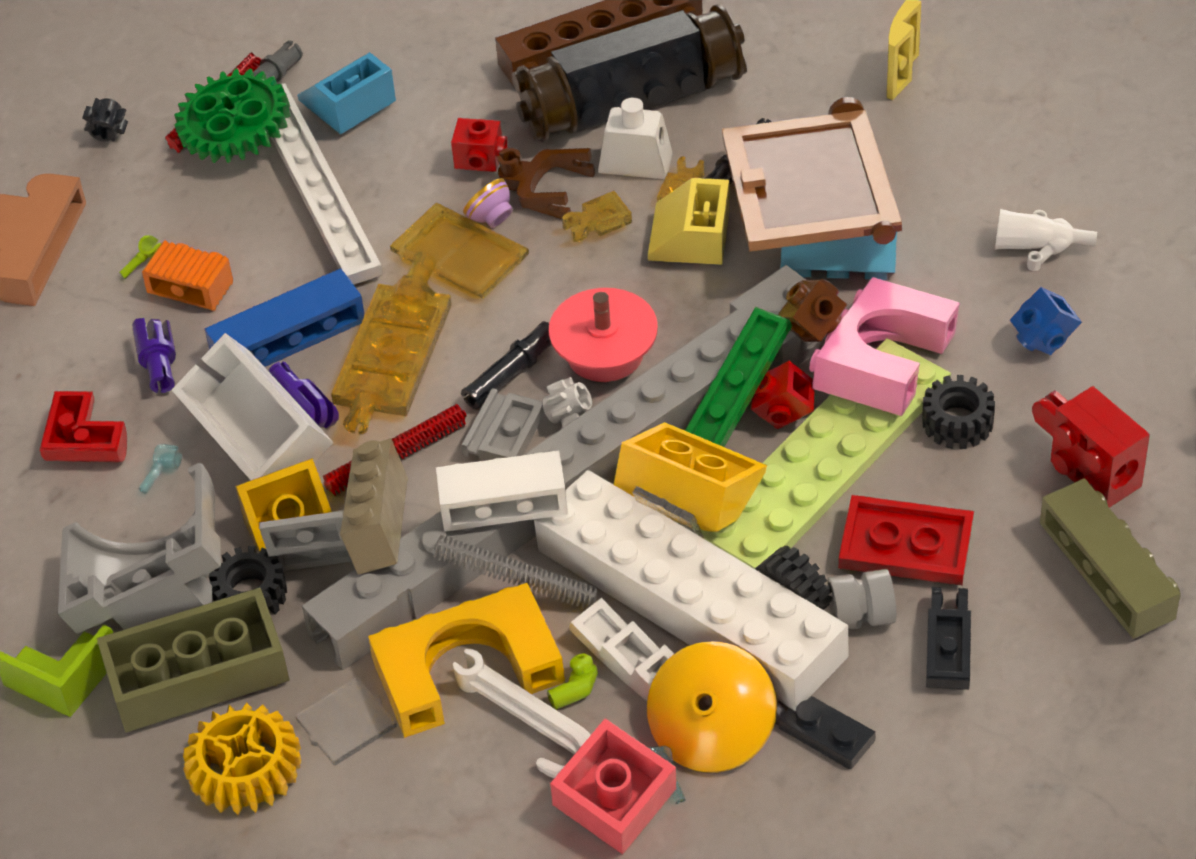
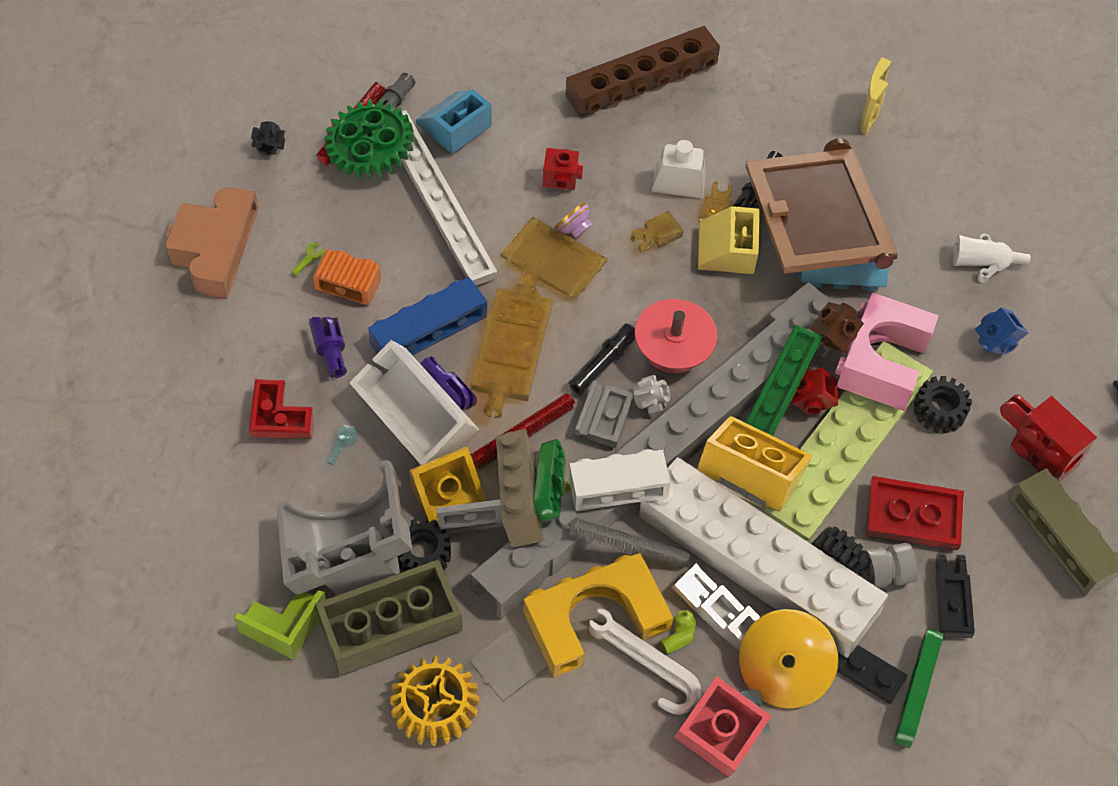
camera: 10 degrees left, 10 degrees up
(414, 500) = (550, 481): none -> green beam
(525, 175) = (597, 194): reddish brown piece -> none
(645, 62) = (672, 110): black brick -> none
(886, 745) = (918, 688): none -> green beam

